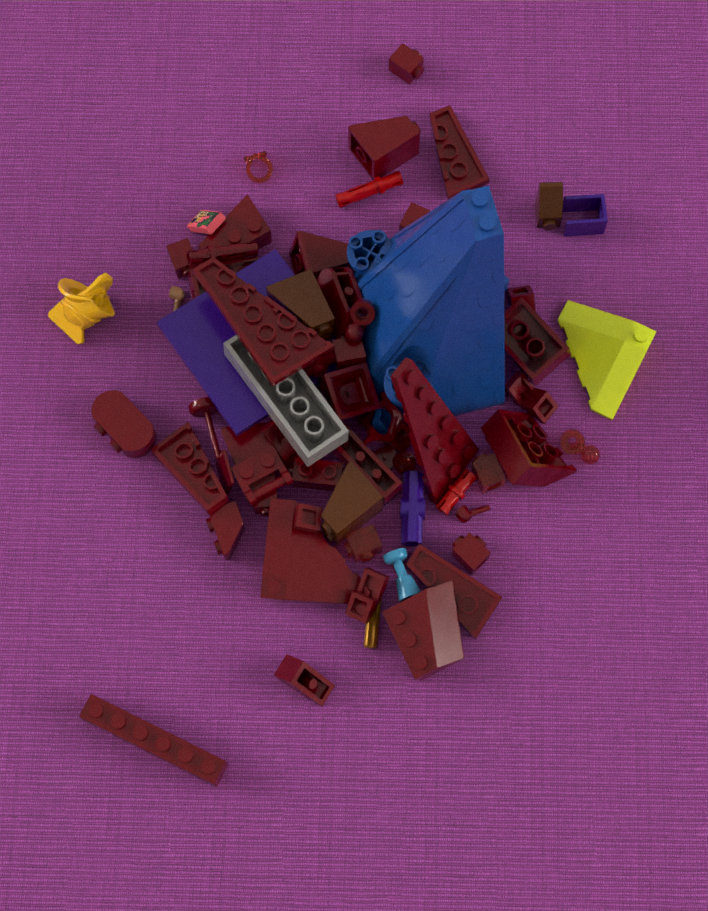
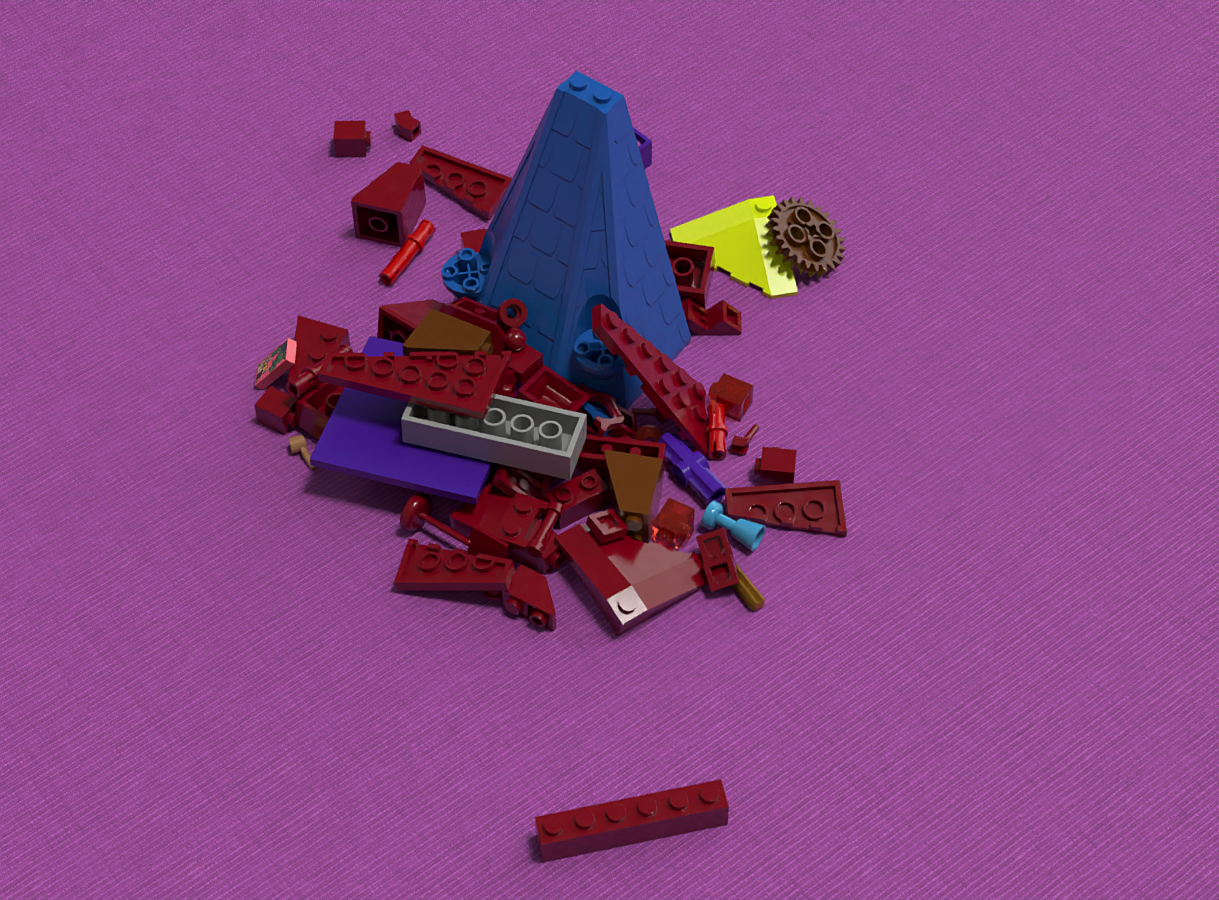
camera: 40 degrees left, 20 degrees down
(82, 306) = (212, 510): yellow helmet -> none
(123, 424) = (346, 580): dark red brick -> none
(262, 156) = (278, 287): clear red piece -> none
(304, 679) = (724, 669): dark red slope -> none
(427, 630) = (799, 552): dark red wedge -> none
(455, 78) = (407, 125): none -> dark red piece
(523, 449) = (745, 358): dark red wedge -> none
(589, 454) = (803, 329): clear red plate -> none
(650, 382) = (805, 237): none -> reddish brown gear

